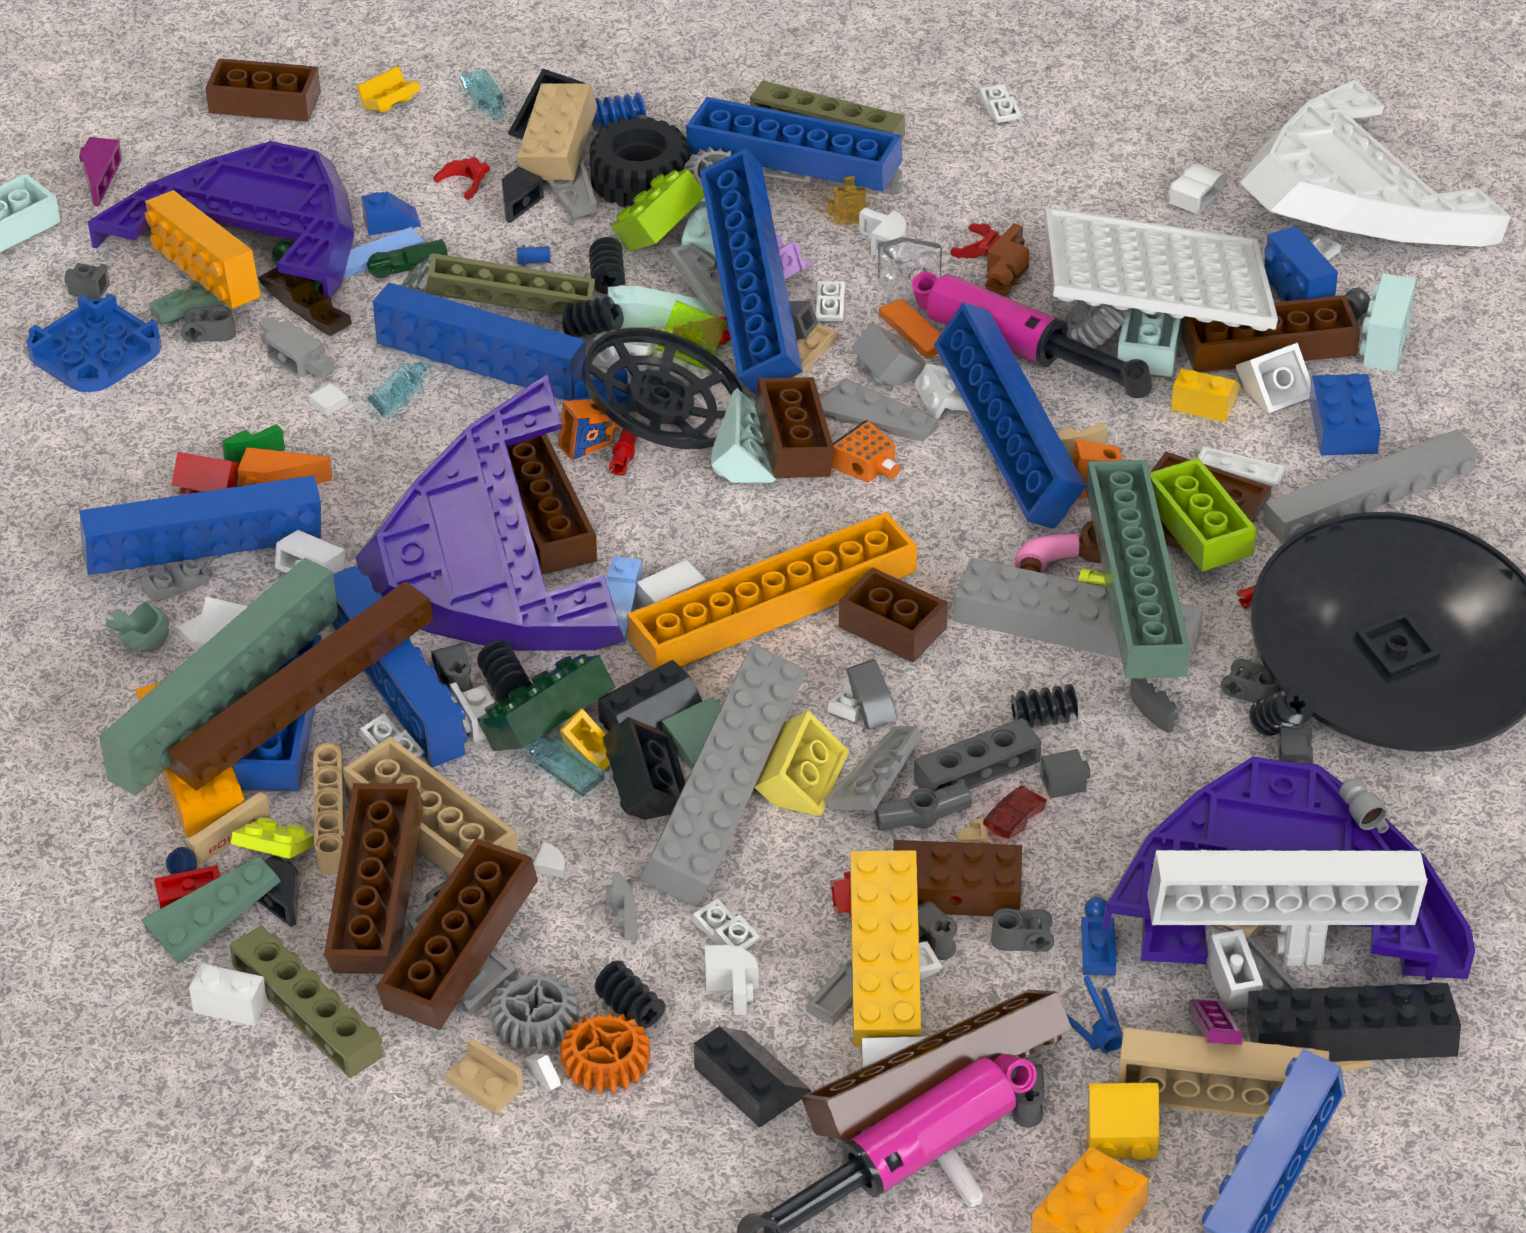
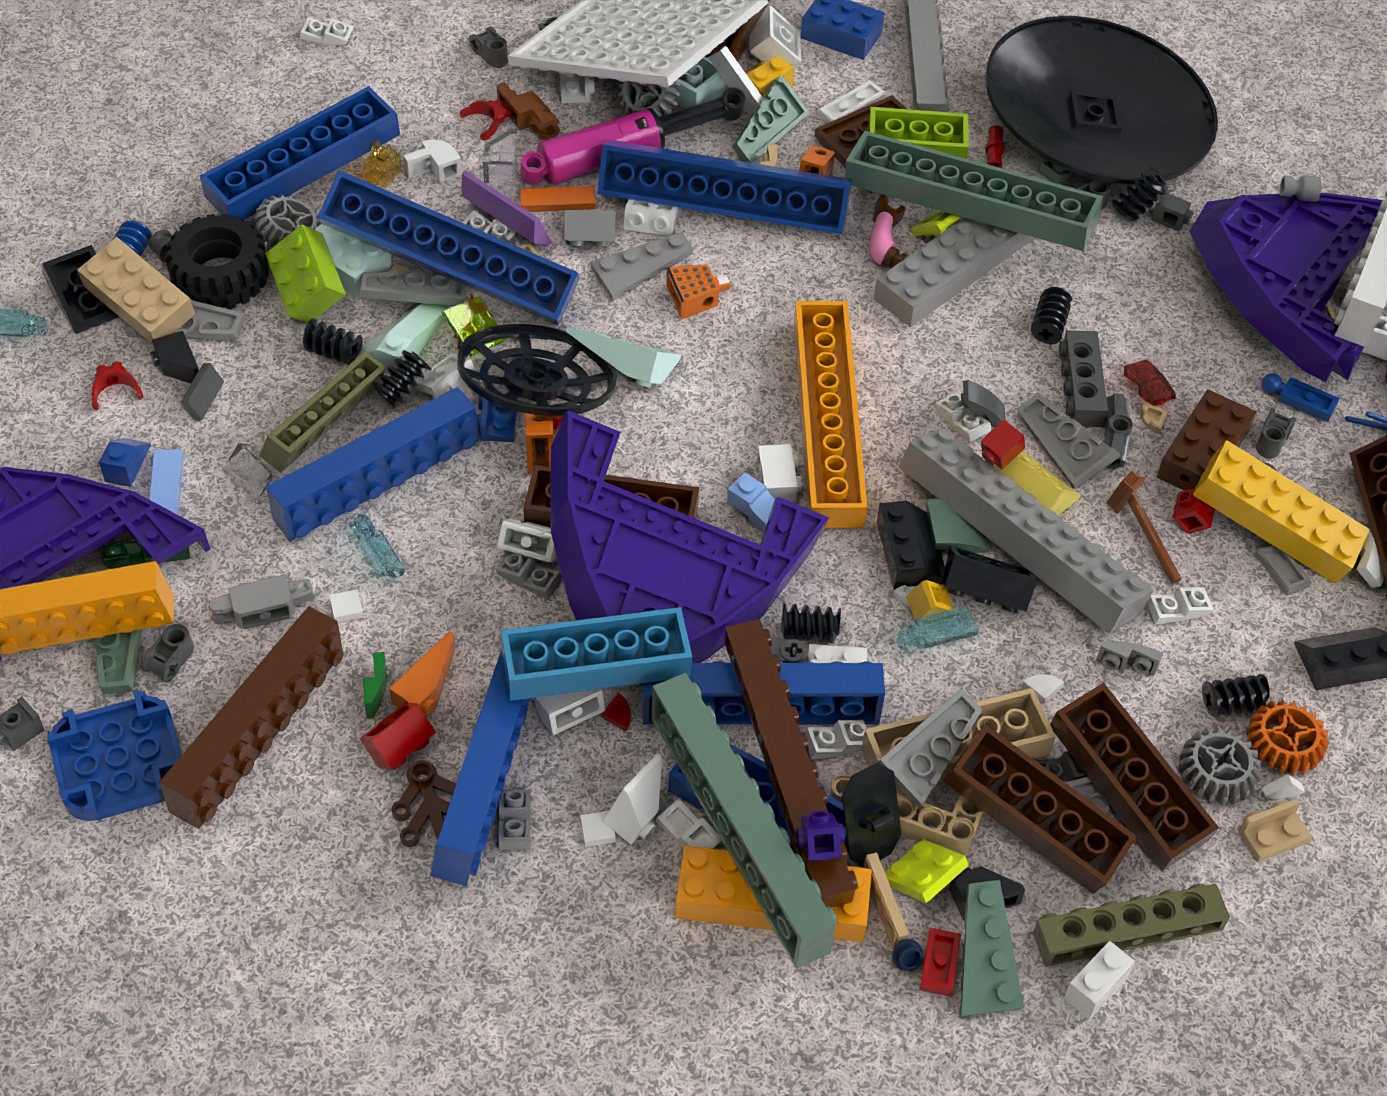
camera: 65 degrees left, 10 degrees up
(143, 629) = (576, 861): sand green hat -> none
(168, 387) = (252, 718): none -> reddish brown brick
(213, 713) = (820, 836): none -> dark purple brick
(292, 766) = (871, 813): none -> black shield
(301, 298) = (206, 565): dark brown slope -> none
(328, 521) = (595, 653): none -> dark azure brick
(365, 765) = (931, 746): none -> light grey wing
(401, 260) = (199, 469): dark green piece -> none
(492, 222) = (202, 391): none -> dark grey tile
(533, 255) = (264, 389): blue pin -> none
(545, 702) = (878, 606): dark green brick -> none
(732, 969) = (1238, 616): white brick -> none
(794, 427) = (640, 313): reddish brown brick -> none
(796, 704) = (1002, 445): none -> red brick
(818, 106) = (250, 128): olive brick -> none
(830, 840) = (1126, 495): none -> dark orange piece
(853, 297) = (503, 209): none -> medium lavender slope
(893, 614) = (900, 352): reddish brown brick -> none
(1064, 773) = (1126, 337): dark grey brick -> none
(1078, 199) = (490, 47): none -> dark grey piece
(1152, 417) = (772, 119): none -> sand green wing
(1153, 704) = (1076, 260): dark grey slope -> none
(1164, 365) = (735, 77): none -> white tile

